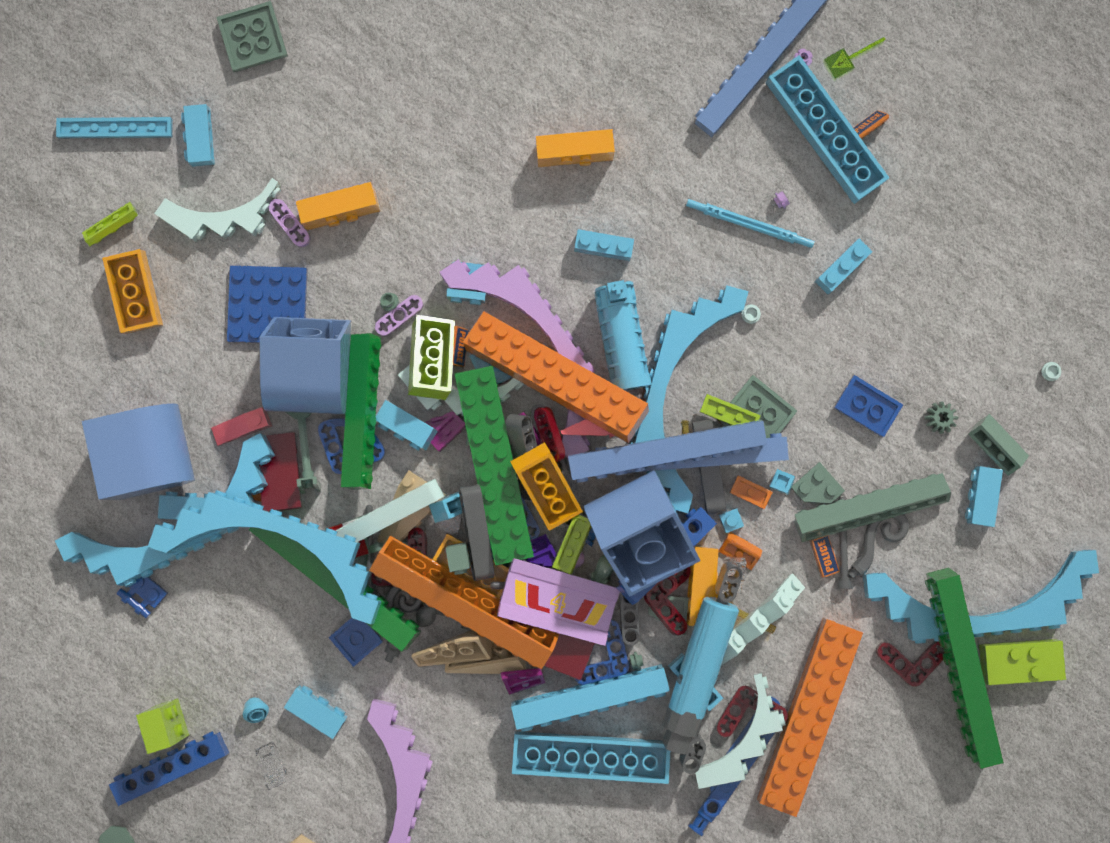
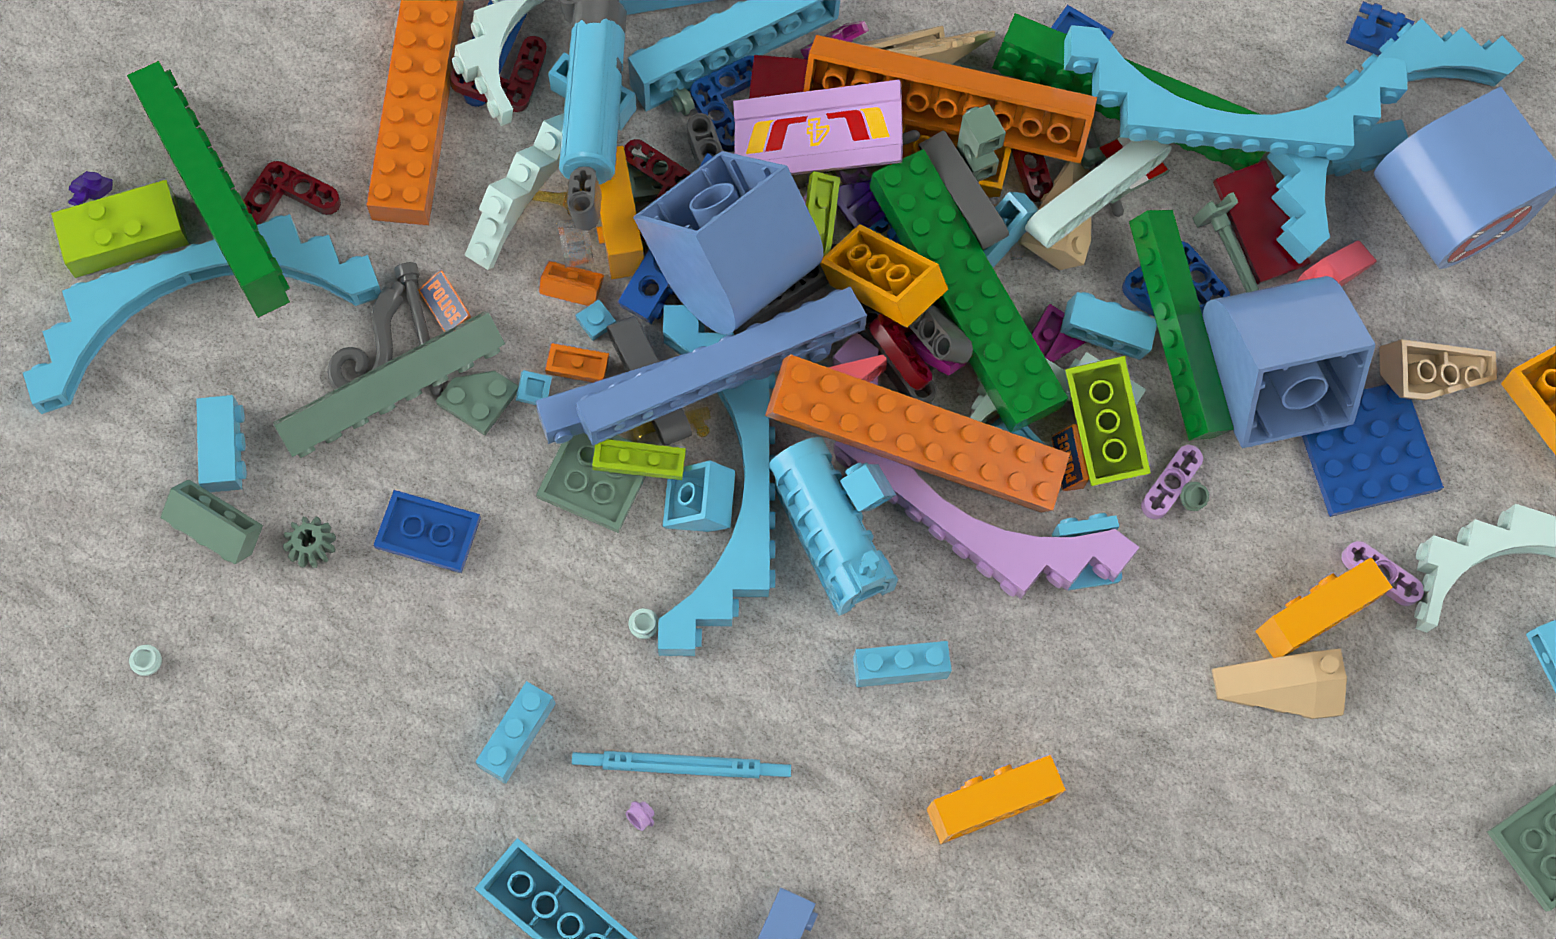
camera: 165 degrees right, 15 degrees down
(209, 341) = (1432, 370): none -> tan wedge
(363, 166) = (1295, 684): none -> tan wedge
(596, 351) = (867, 486): none -> medium azure brick
(696, 380) = (700, 499): none -> medium azure slope
(1038, 698) = (89, 186): none -> dark purple plate

